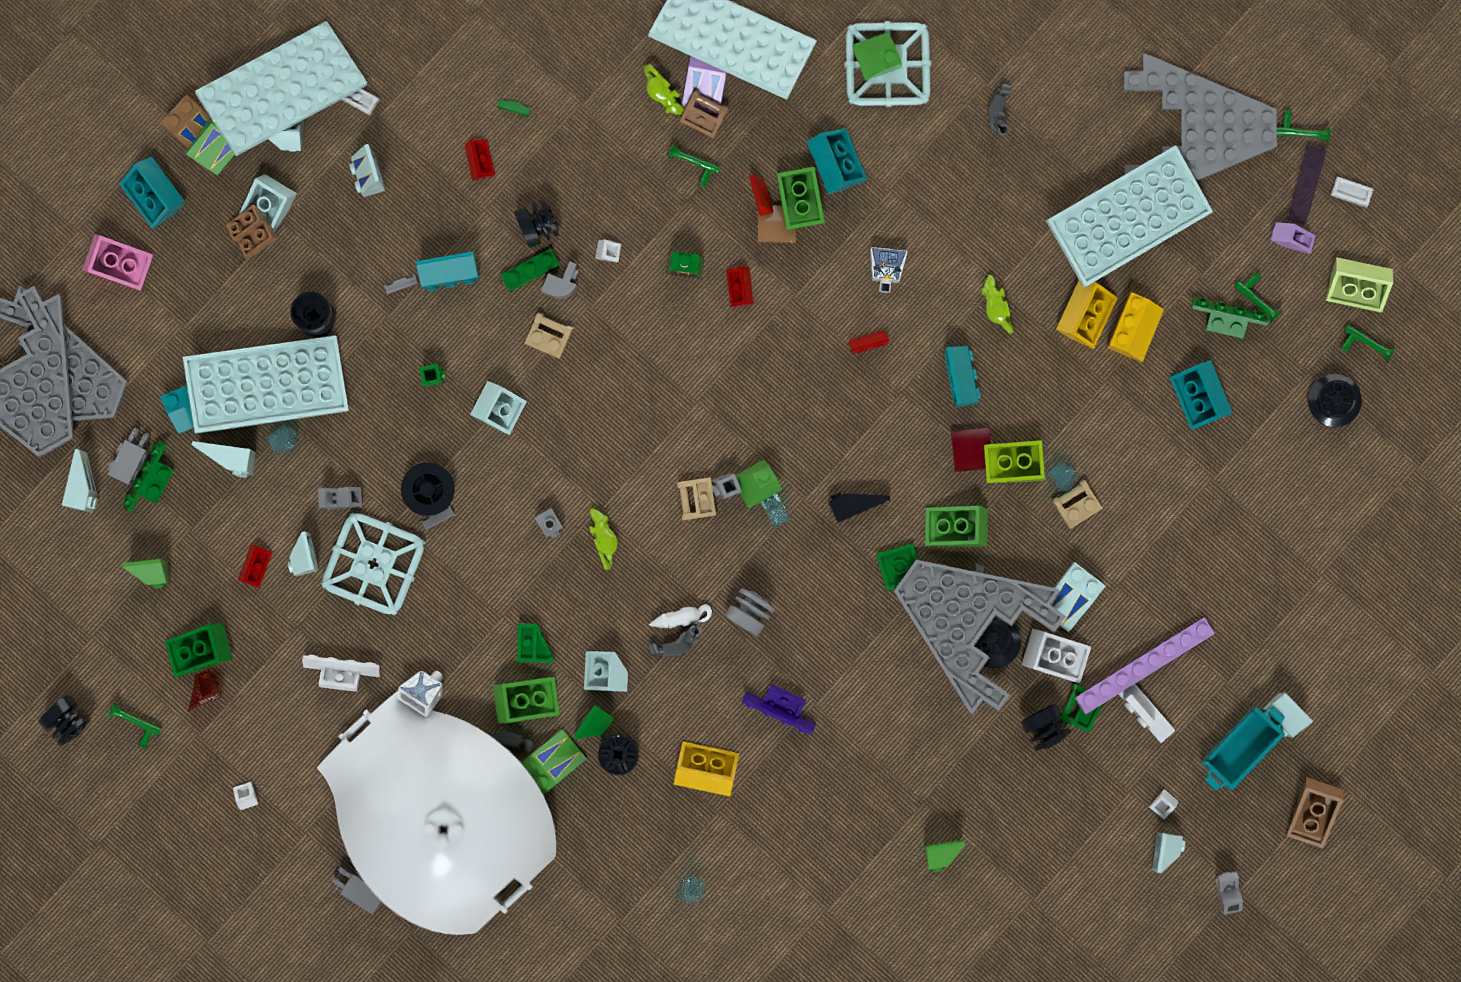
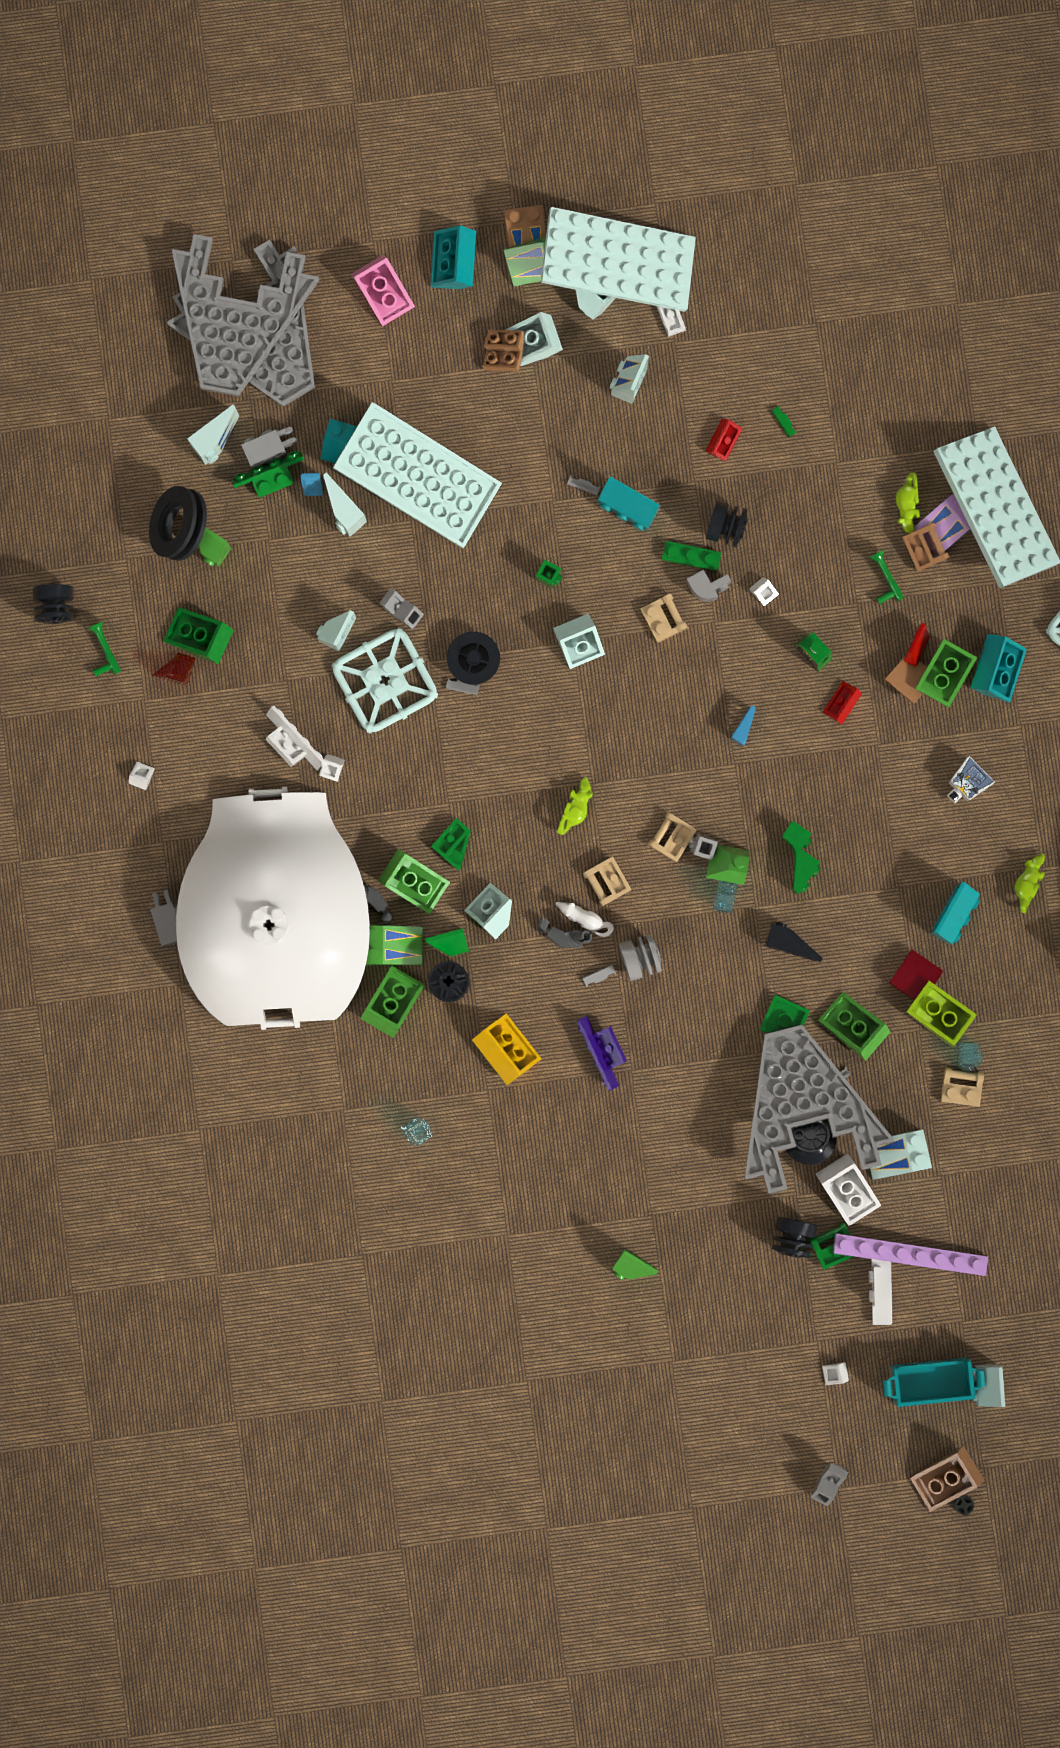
camera: 45 degrees right, 0 degrees up
(123, 569) = (192, 527): none -> black tyre
(189, 459) = (312, 484): none -> dark azure slope
(255, 566) = (294, 607): red slope -> none
(282, 439) = (395, 528): clear light blue brick -> none
(309, 304) = (498, 442): black wheel -> none
(389, 665) = (332, 767): none -> white slope
(422, 692) = (340, 808): white torso -> none
(549, 524) = (544, 762): light grey brick -> none
(587, 806) = (392, 1001): none -> bright green slope
(677, 568) = (613, 878): none -> tan plate
(682, 374) = (742, 731): none -> dark azure slope
(729, 652) = (599, 975): none -> light grey piece
(816, 435) = (804, 864): none -> green arch
(868, 342) = (905, 828): red slope -> none
(1167, 850) = (808, 1410): light aqua slope -> none
(1346, 821) = (964, 1508): none -> pearl dark grey wheel

